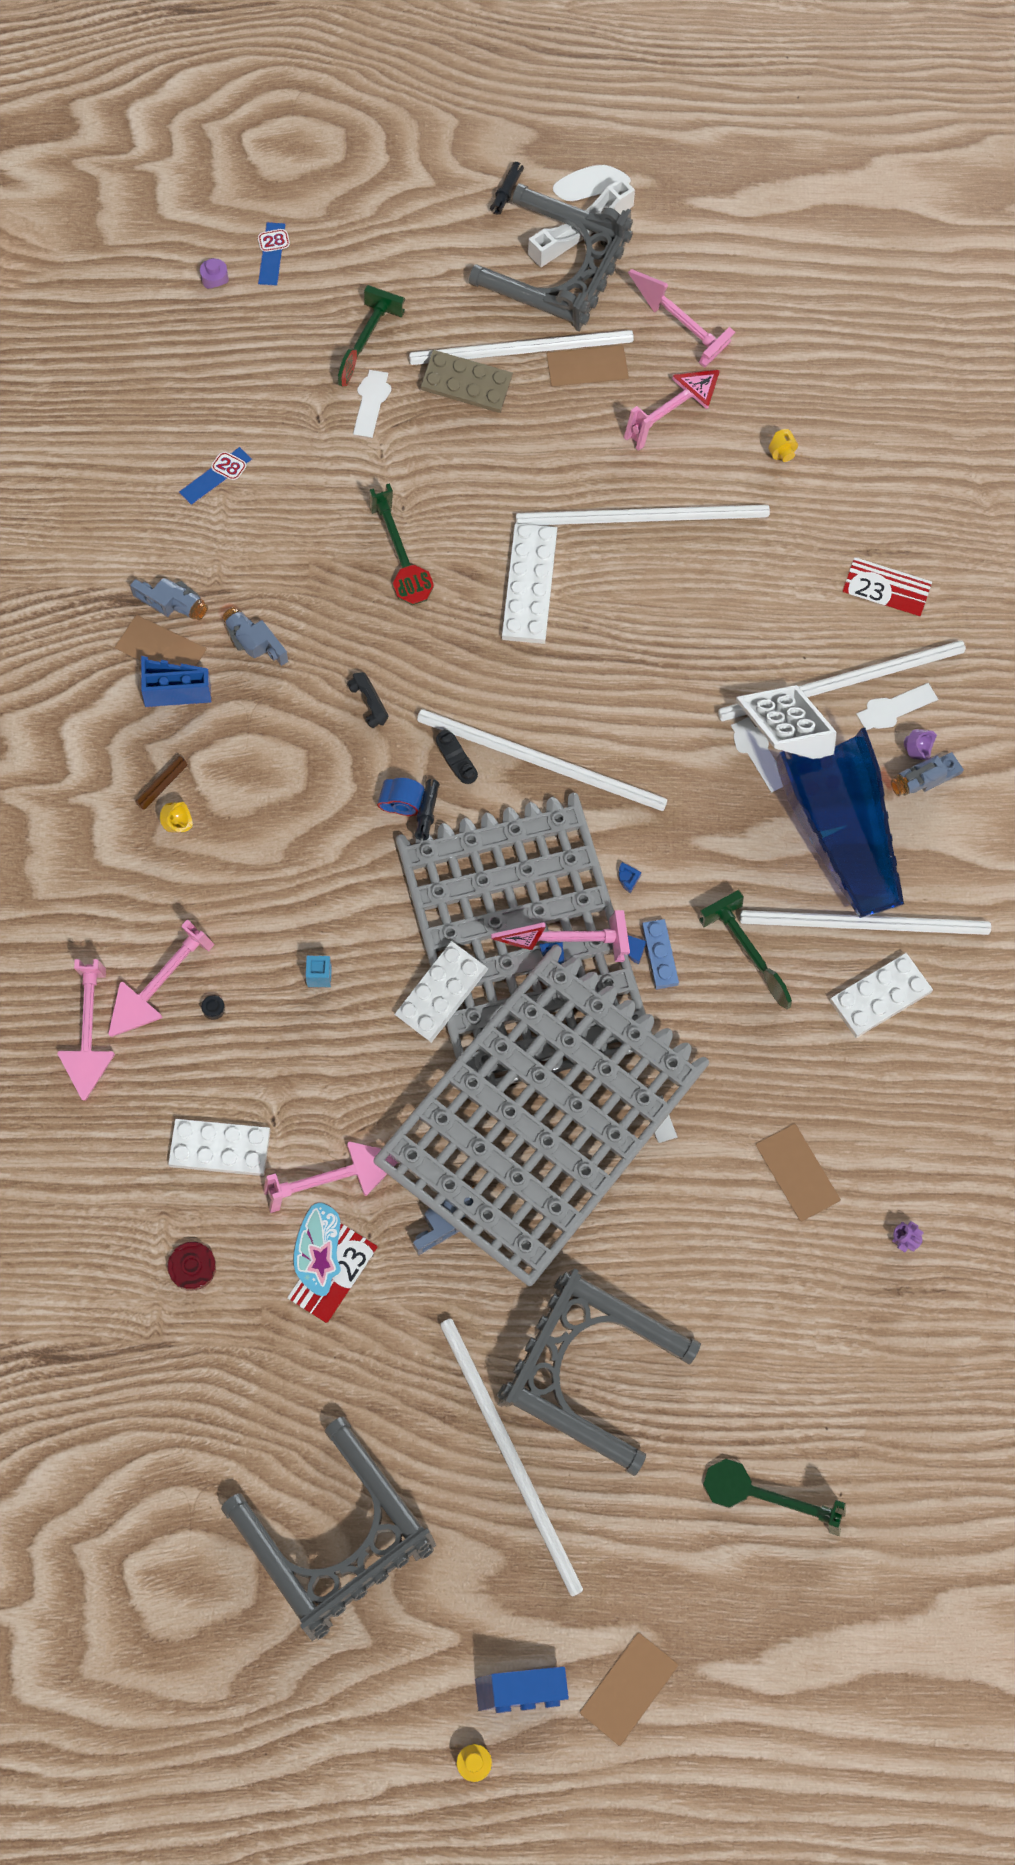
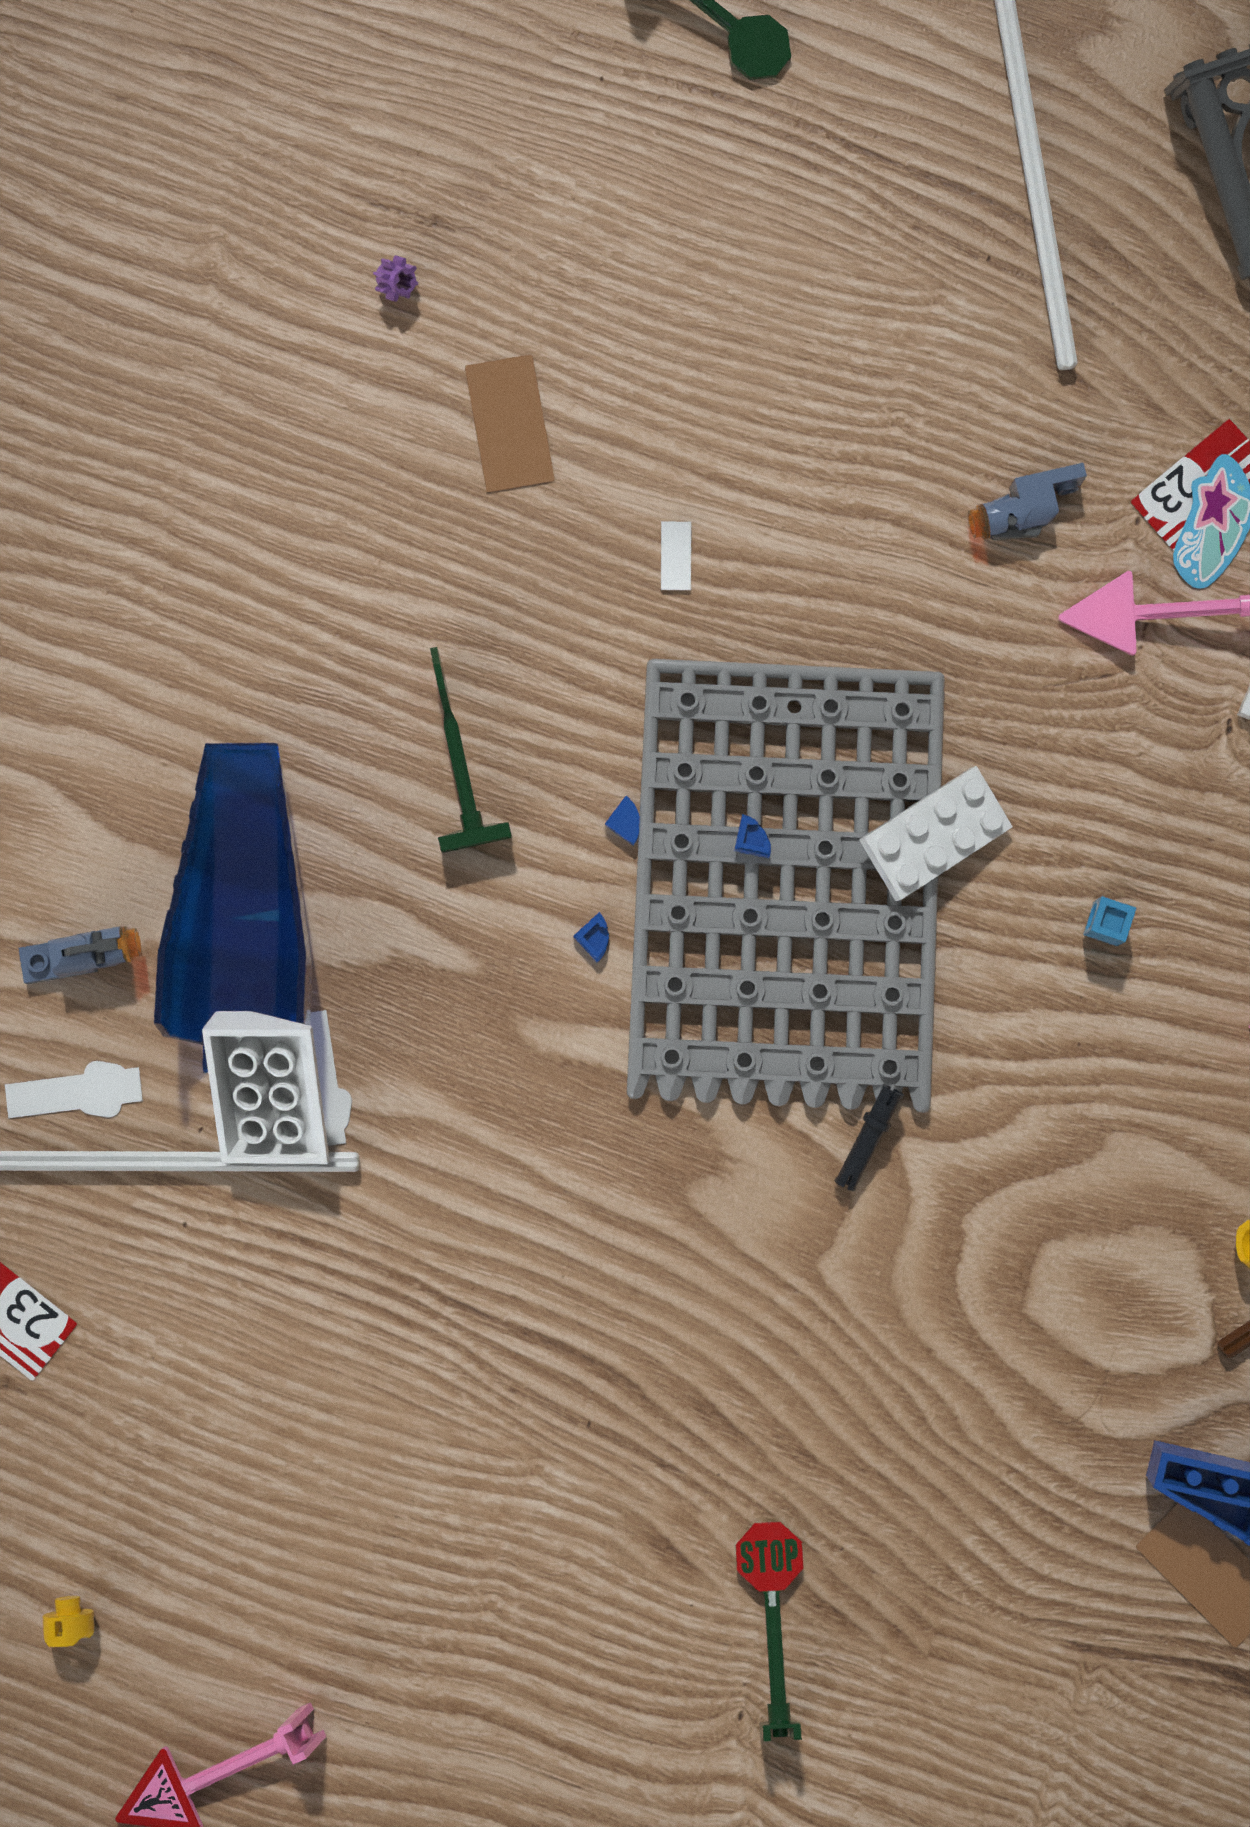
camera: 160 degrees left, 15 degrees up
(170, 597) = (1171, 1658): sand blue plate -> none
(252, 637) = (1064, 1535): sand blue plate -> none
(379, 714) = (904, 1394): black piece -> none
(401, 796) = (903, 1172): blue piece -> none
(456, 757) = (794, 1217): black piece -> none
(528, 936) = (651, 832): bright pink piece -> none
(528, 1128) = (698, 701): light grey bar -> none
(529, 583) = (577, 1500): white plate -> none
(543, 760) = (664, 1175): white axle -> none
(563, 1417) = (882, 330): dark grey arch -> none
(643, 515) = (349, 1569): white axle -> none
(660, 954) = (589, 800): medium blue plate -> none
(867, 922) = (290, 760): white axle -> none
(881, 995) = (290, 636): white plate -> none
(920, 743) = (69, 1007): medium lavender piece -> none

